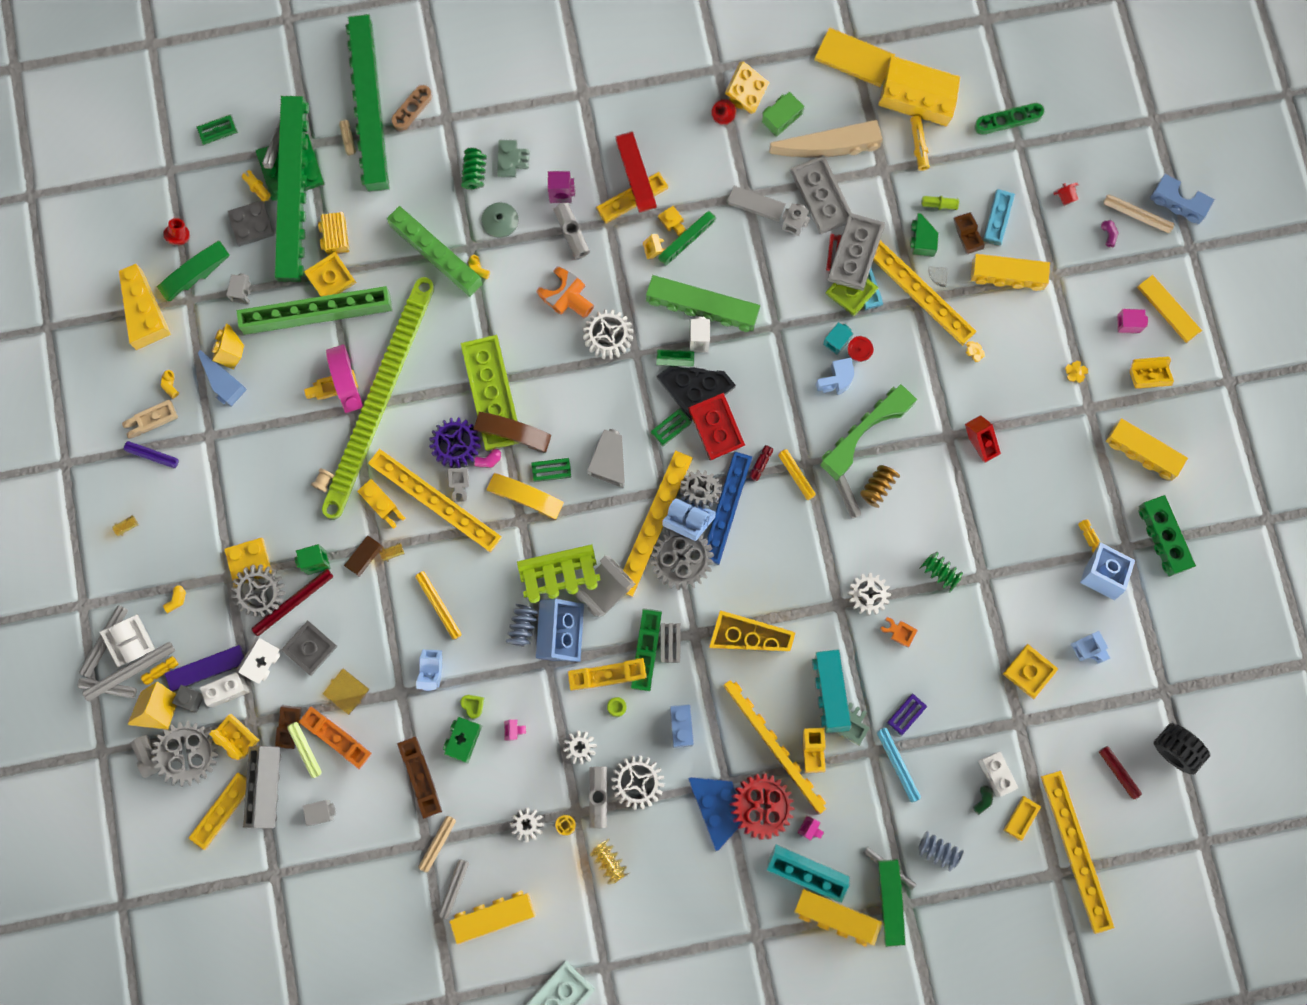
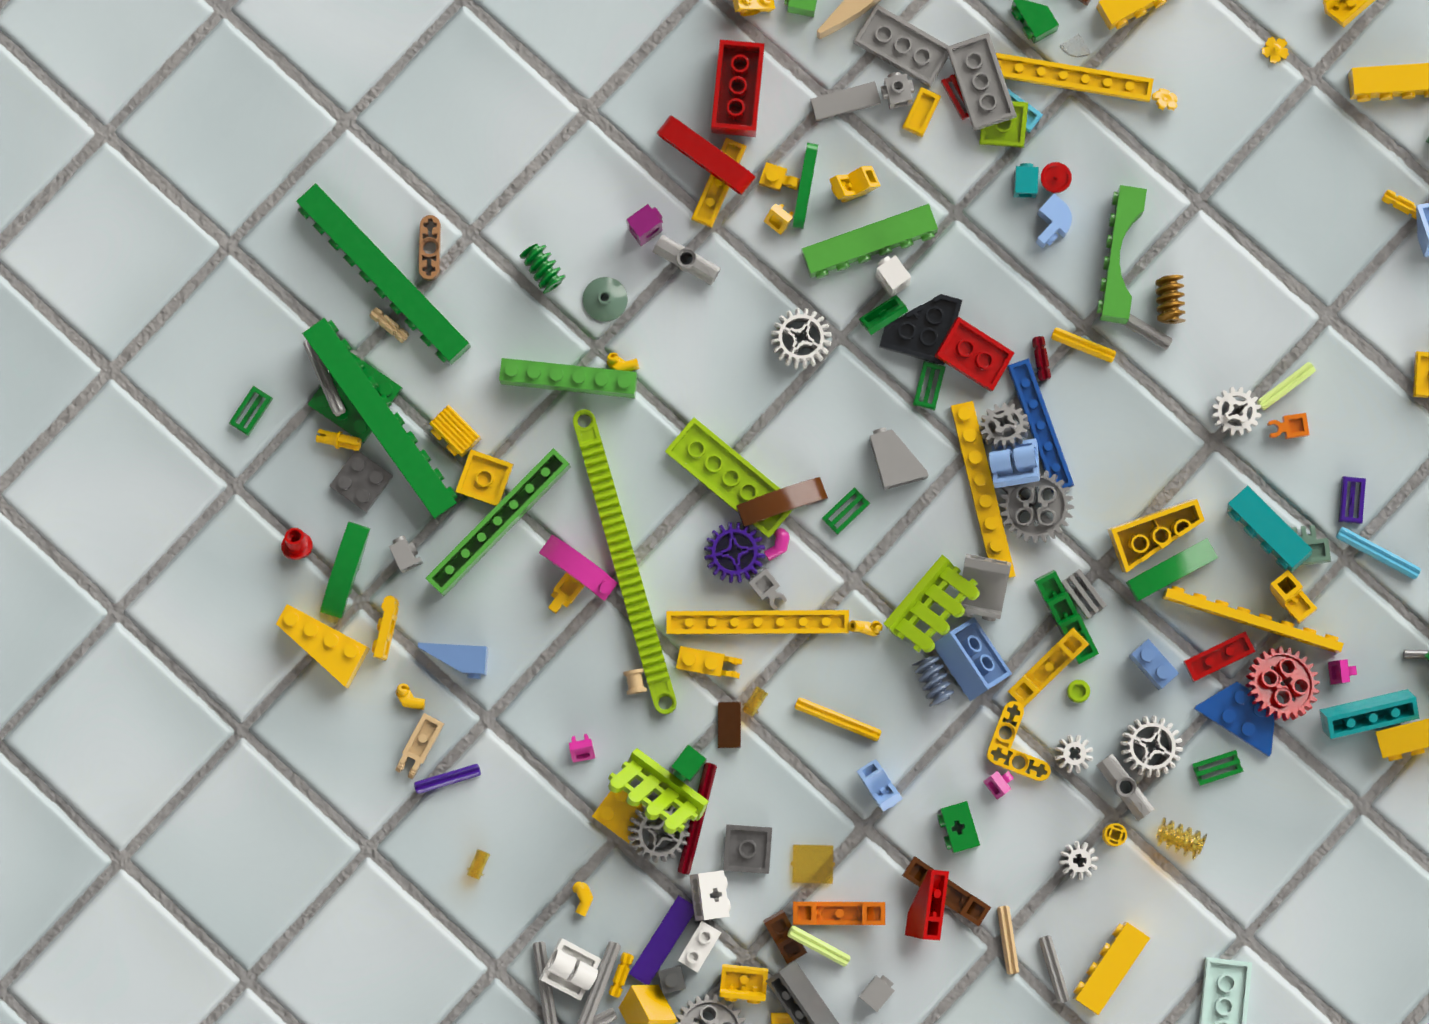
camera: 30 degrees left, 5 degrees up
(190, 327) = (386, 628): none -> yellow hinge
(228, 347) = (442, 620): yellow slope -> none
(251, 499) = (582, 749): none -> dark pink tile
(283, 555) = (662, 782): none -> lime fence
(397, 778) = (927, 908): none -> red slope
(472, 705) = (943, 789): lime tile -> none
(507, 560) = (871, 629): none -> yellow arm
(511, 158) = (568, 229): sand green hinge -> none
(525, 495) = (839, 554): yellow slope -> none
(538, 707) = (1005, 746): none -> yellow beam
(567, 295) = (732, 328): orange connector -> none
(689, 143) = (737, 88): none -> red brick
(689, 837) = (1236, 762): none -> green tile
(720, 259) = (854, 184): none -> yellow brick
(723, 112) = (744, 28): red piece -> none
(732, 754) = (1219, 656): none -> red plate
(743, 670) = (1172, 569): none -> green slope
(802, 245) = (921, 112): none -> yellow tile
(917, 602) = (1286, 386): none -> yellowish green axle
(942, 571) = (1288, 339): green piece -> none
(983, 438) = (1234, 181): red slope -> none

